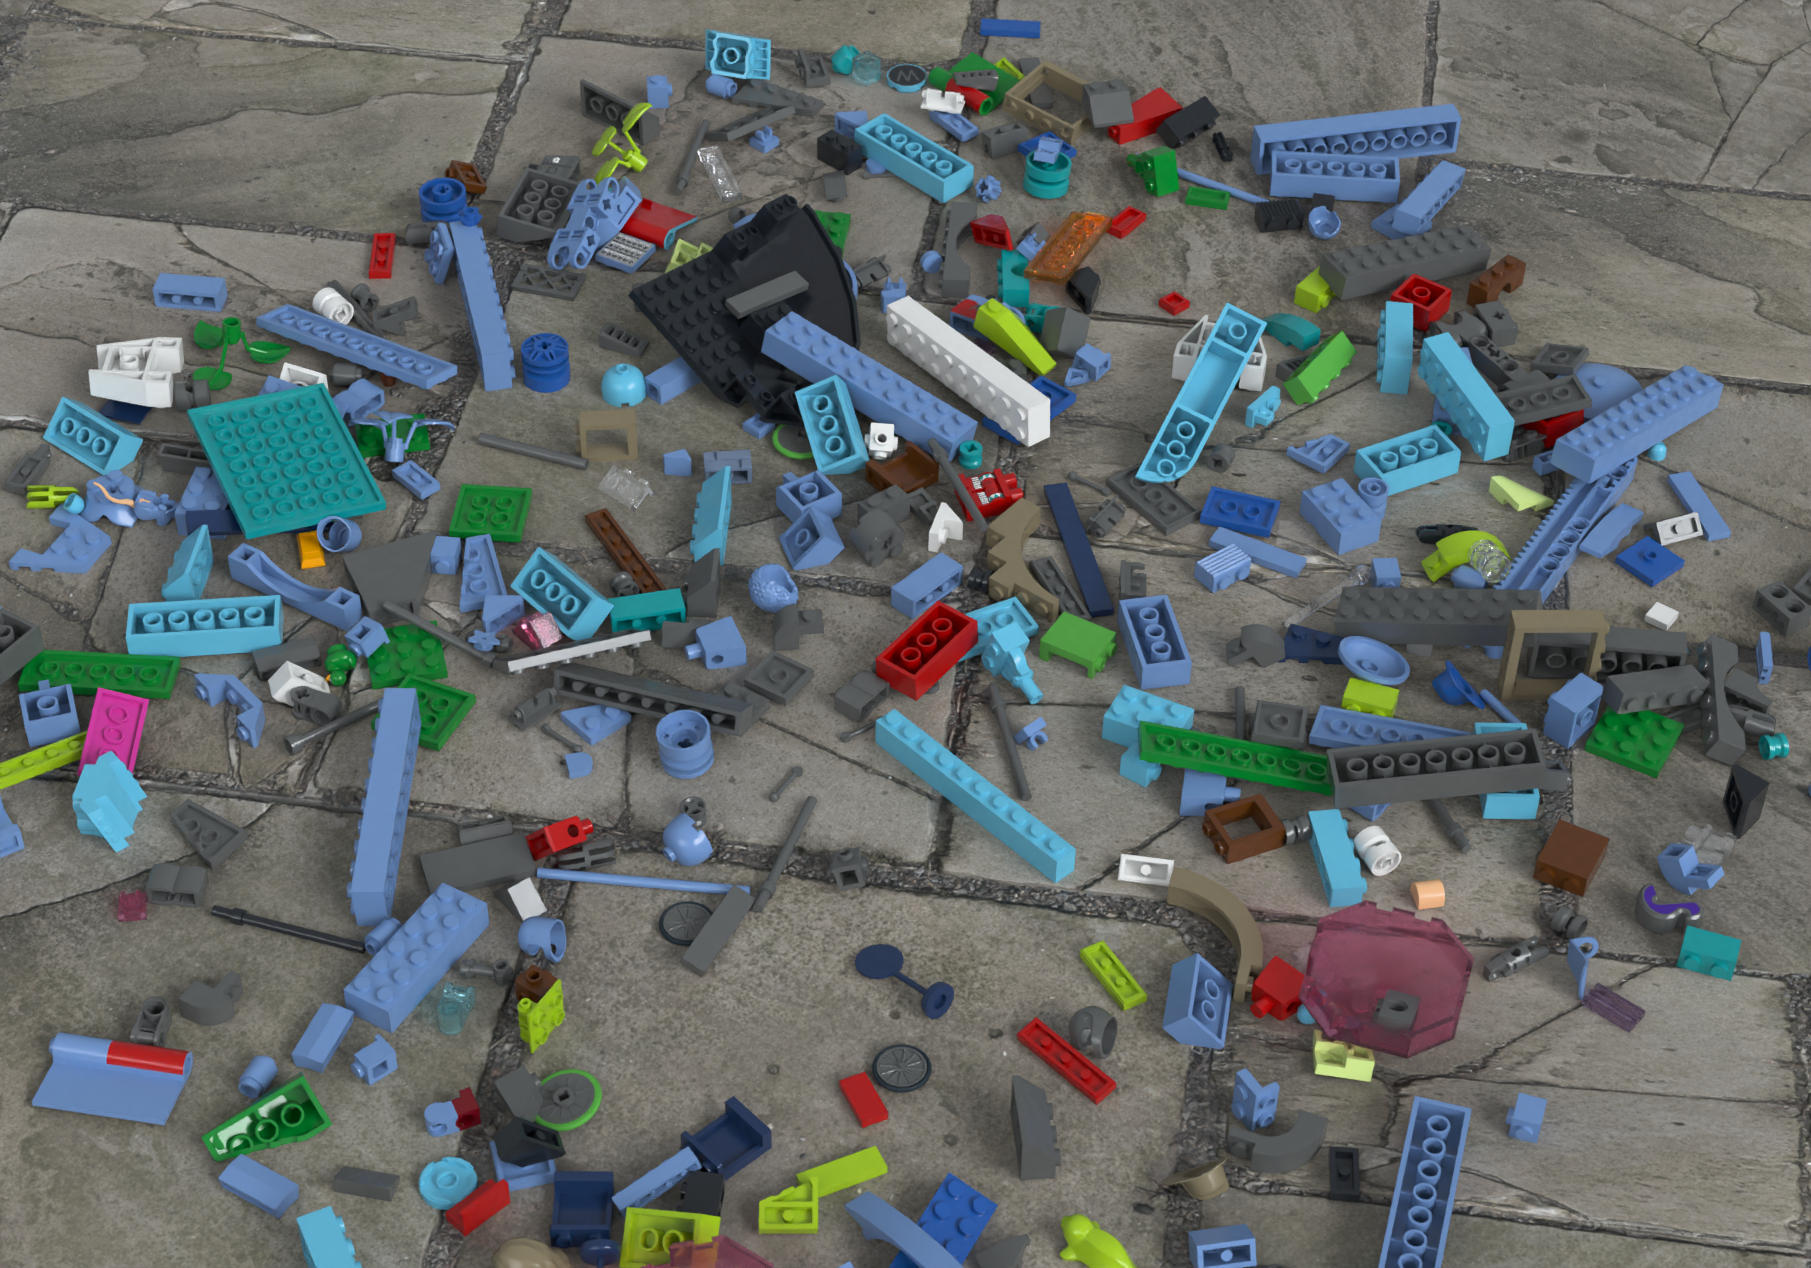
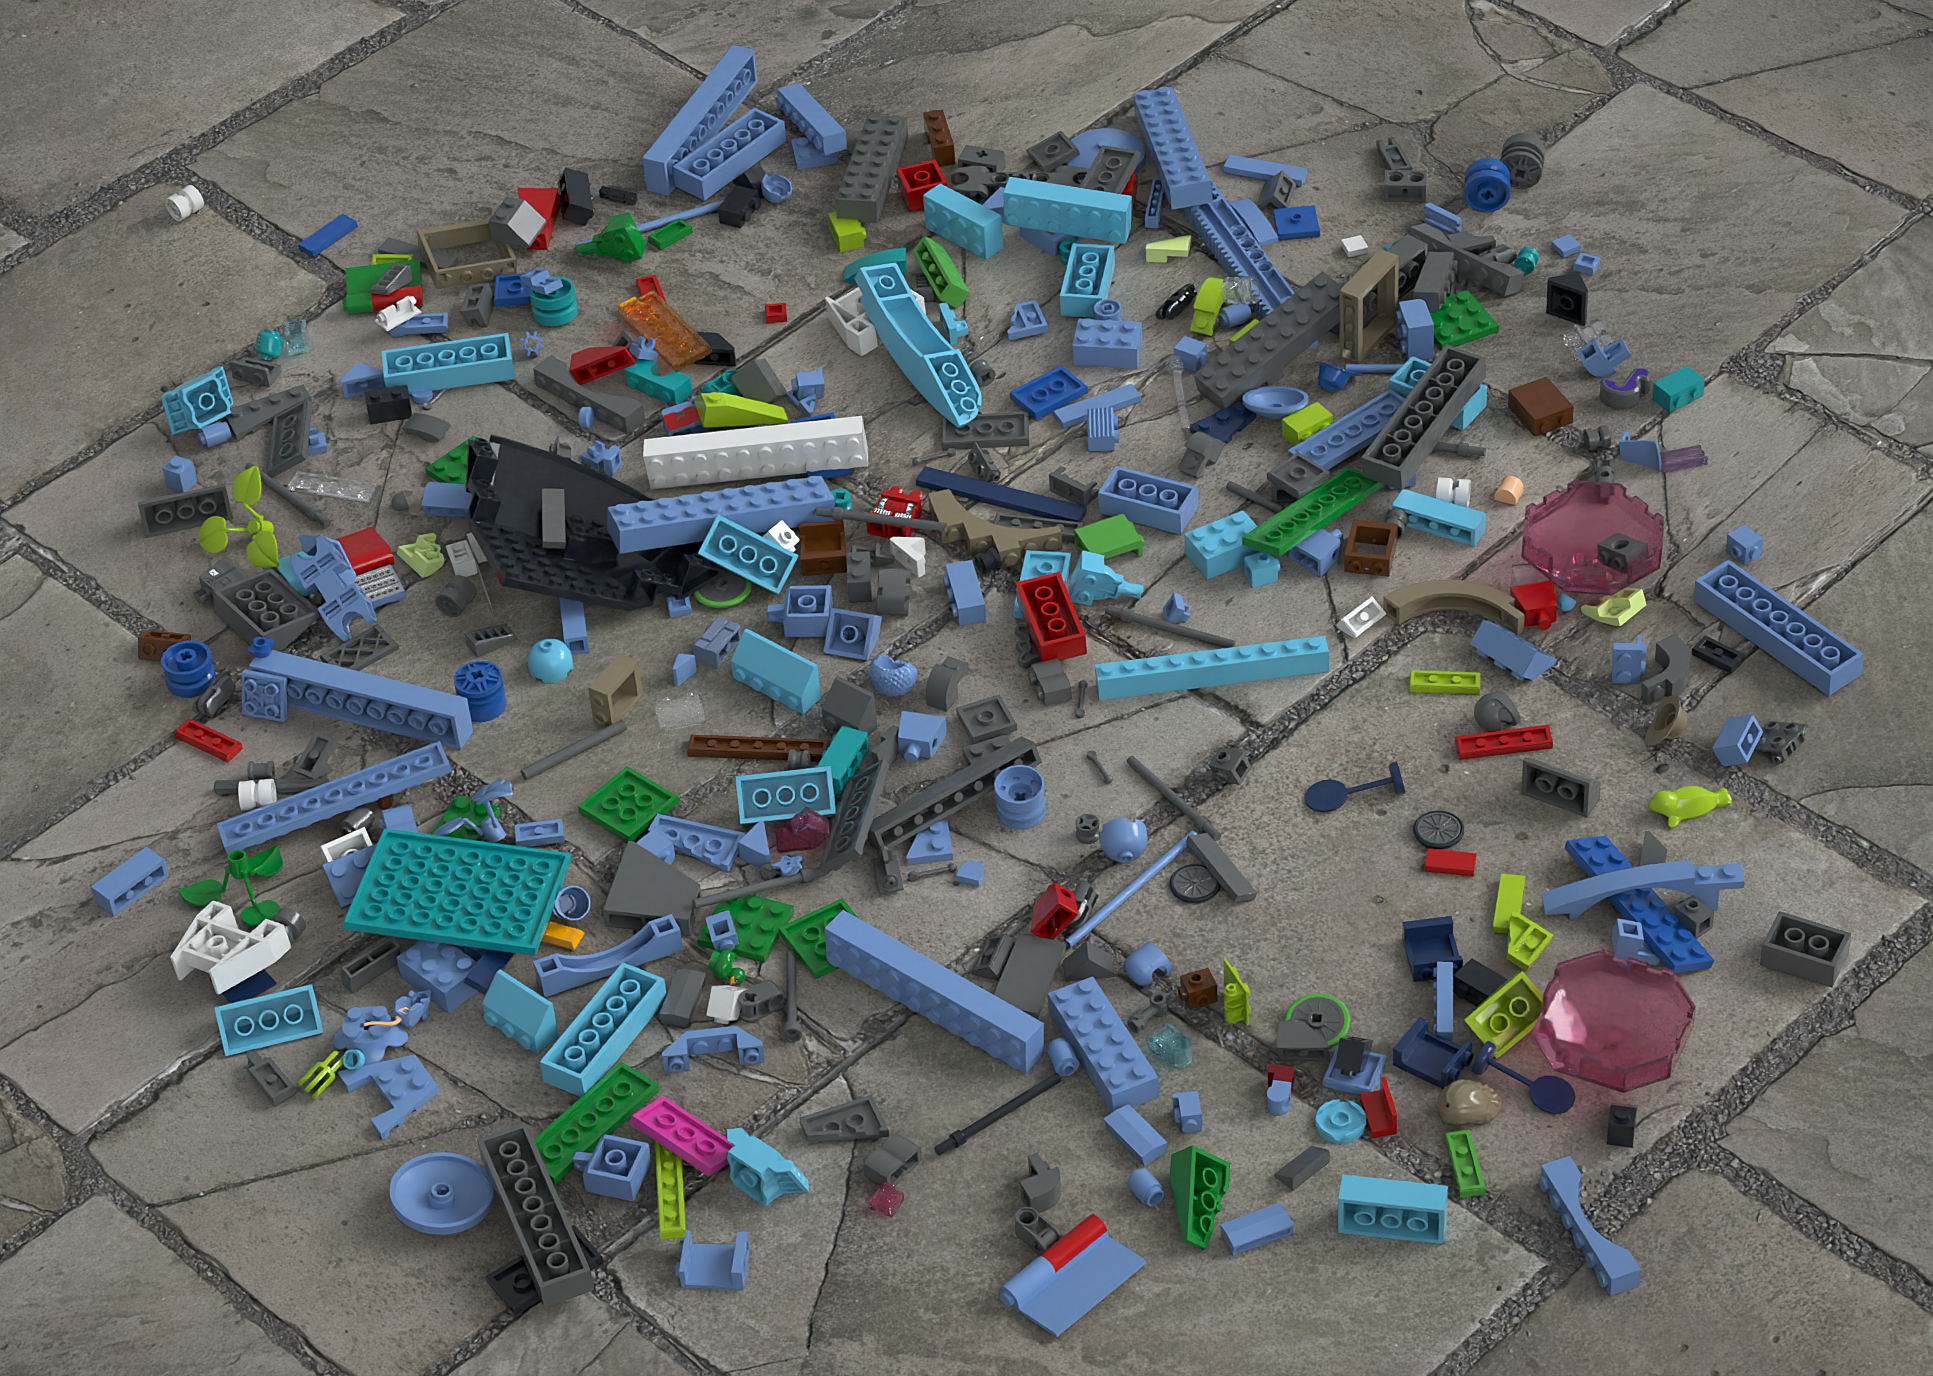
camera: 50 degrees left, 0 degrees up
(907, 78) = (326, 323): tile -> none

